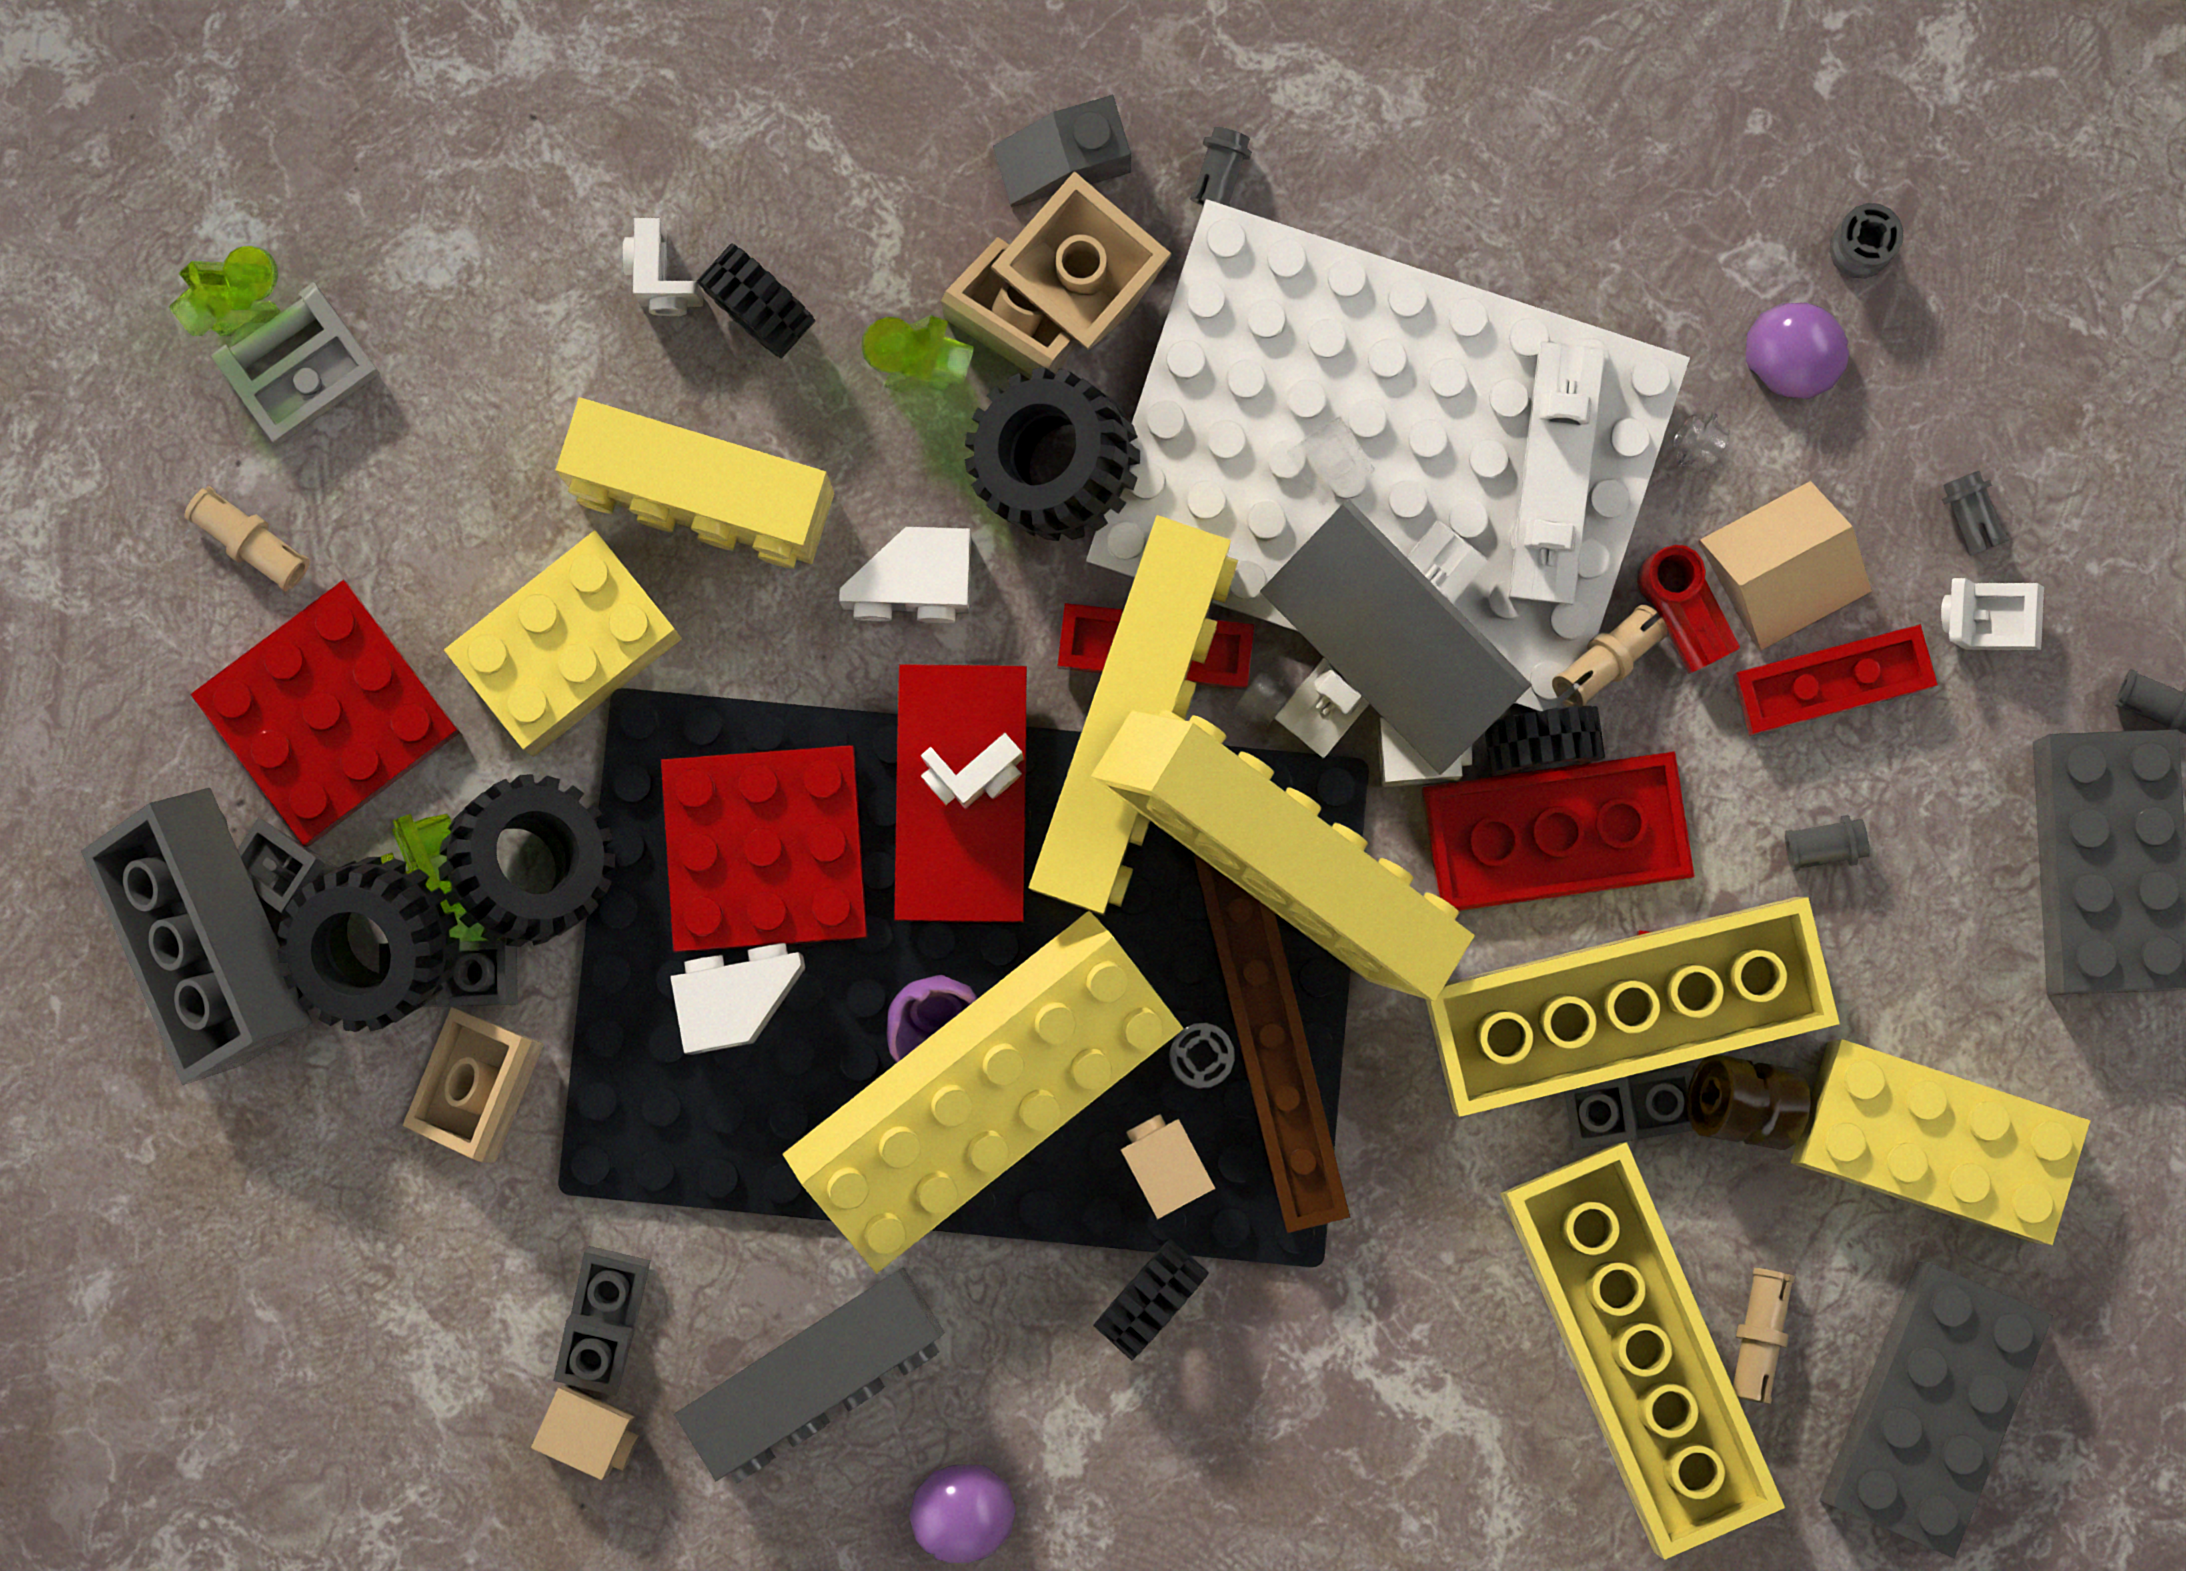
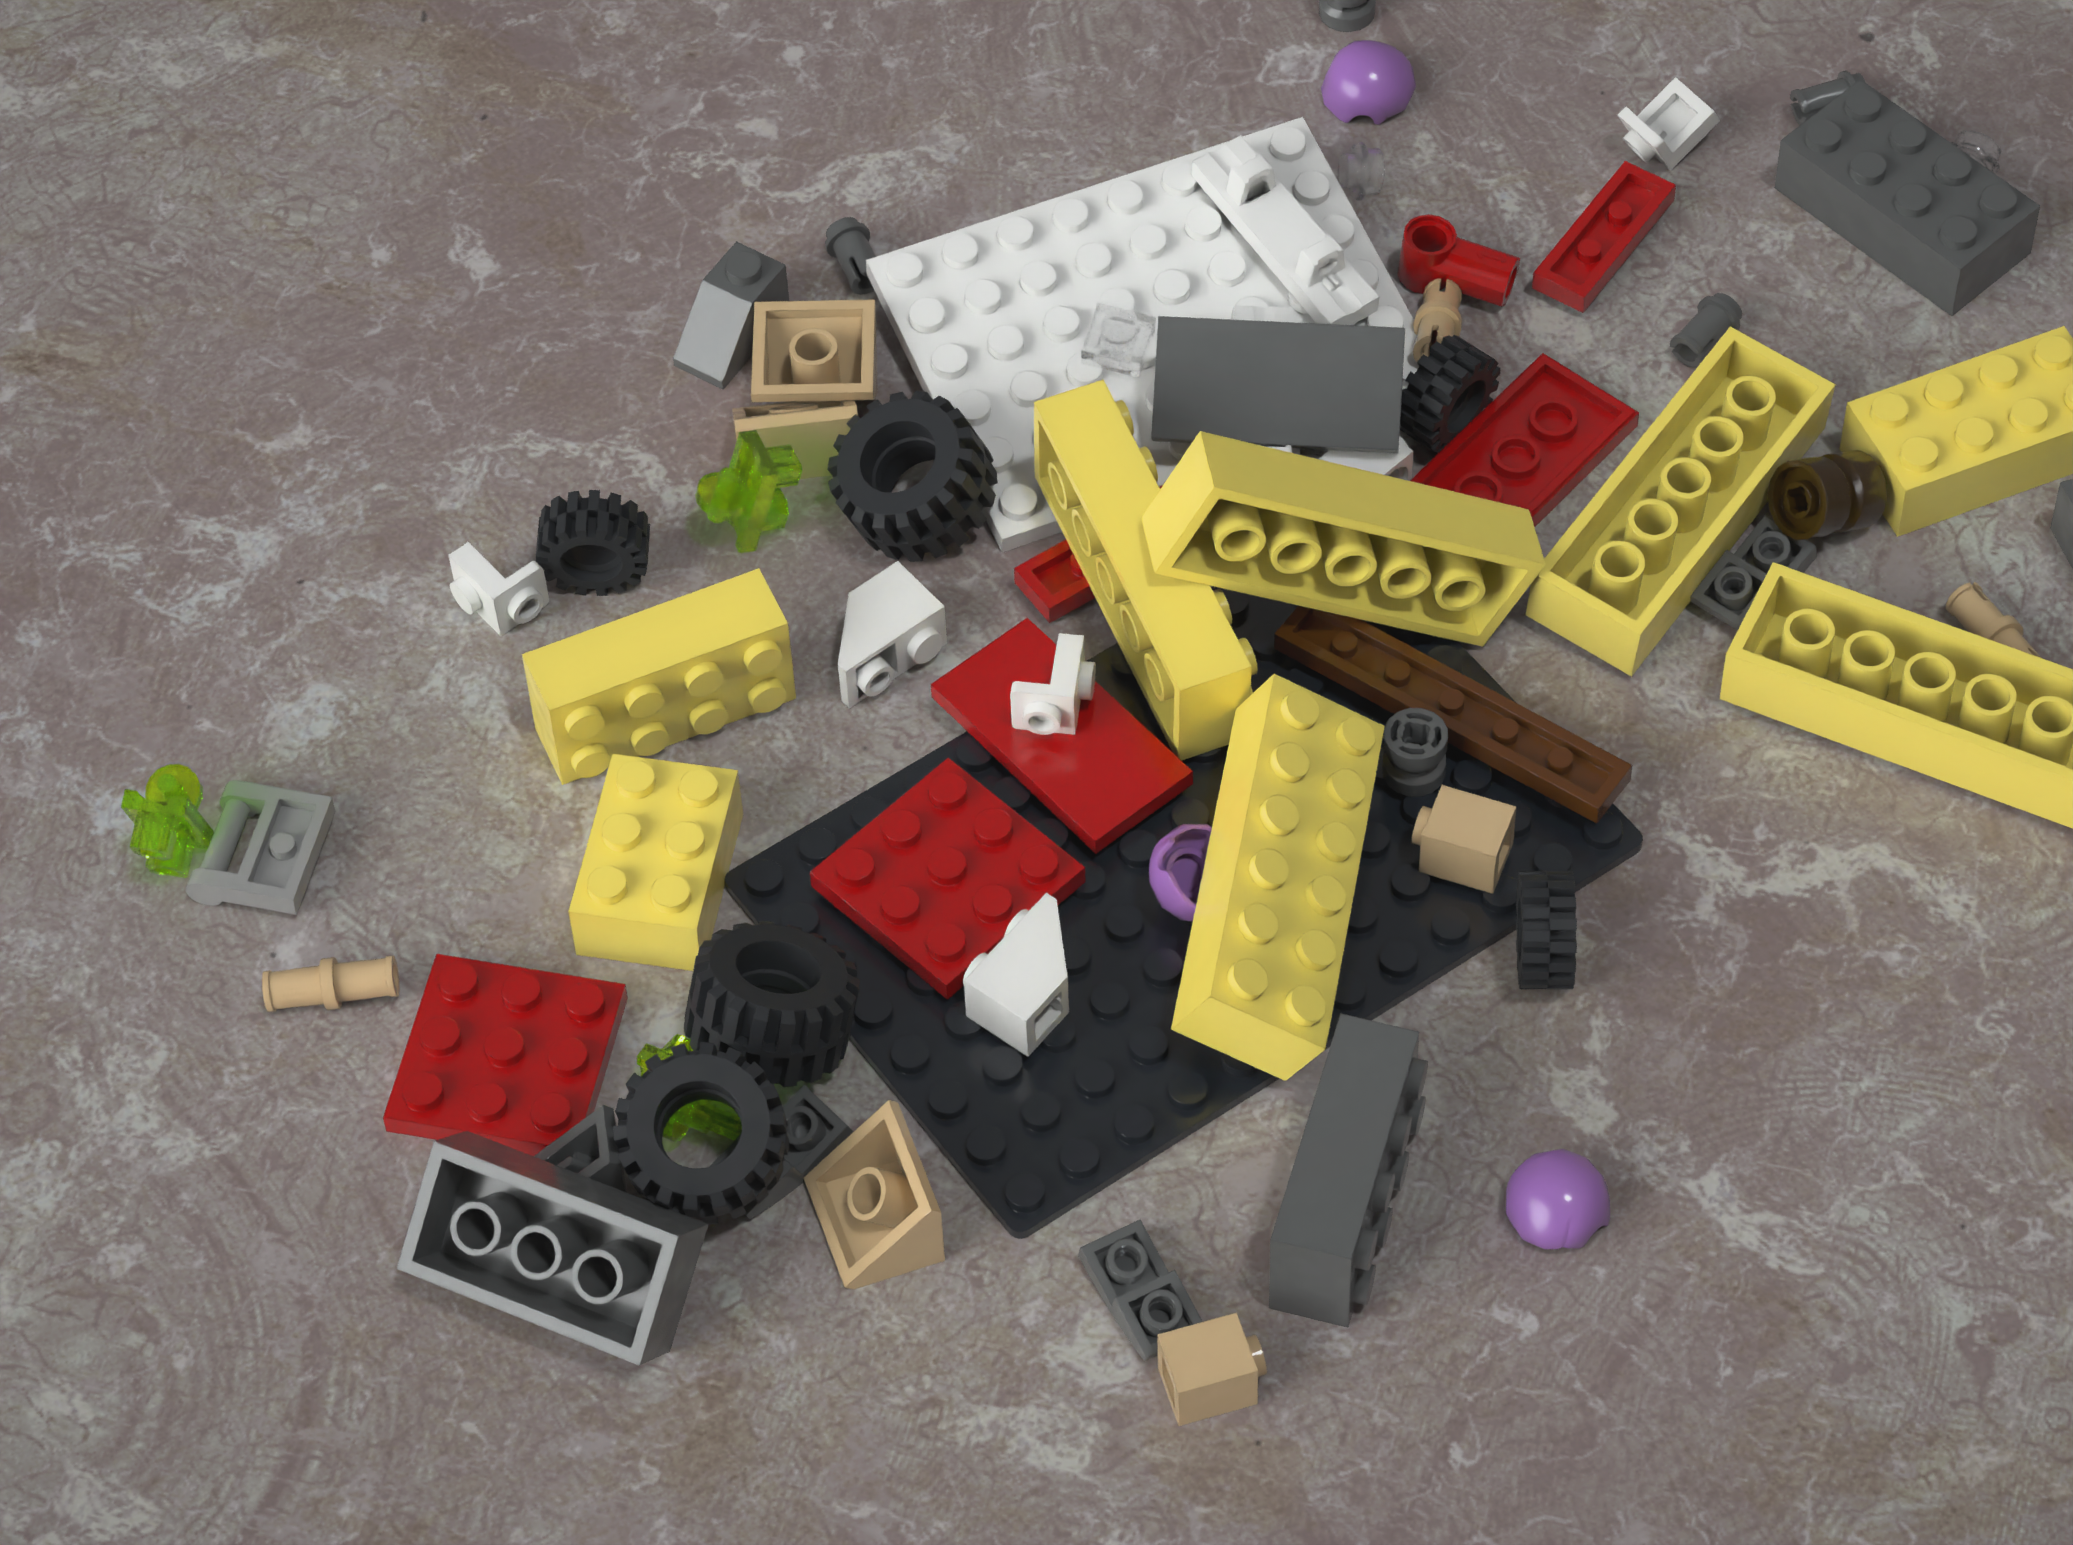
camera: 40 degrees left, 30 degrees down
(1788, 564) = (1504, 194): tan slope -> none
(1971, 507) = (1588, 84): dark grey pin -> none

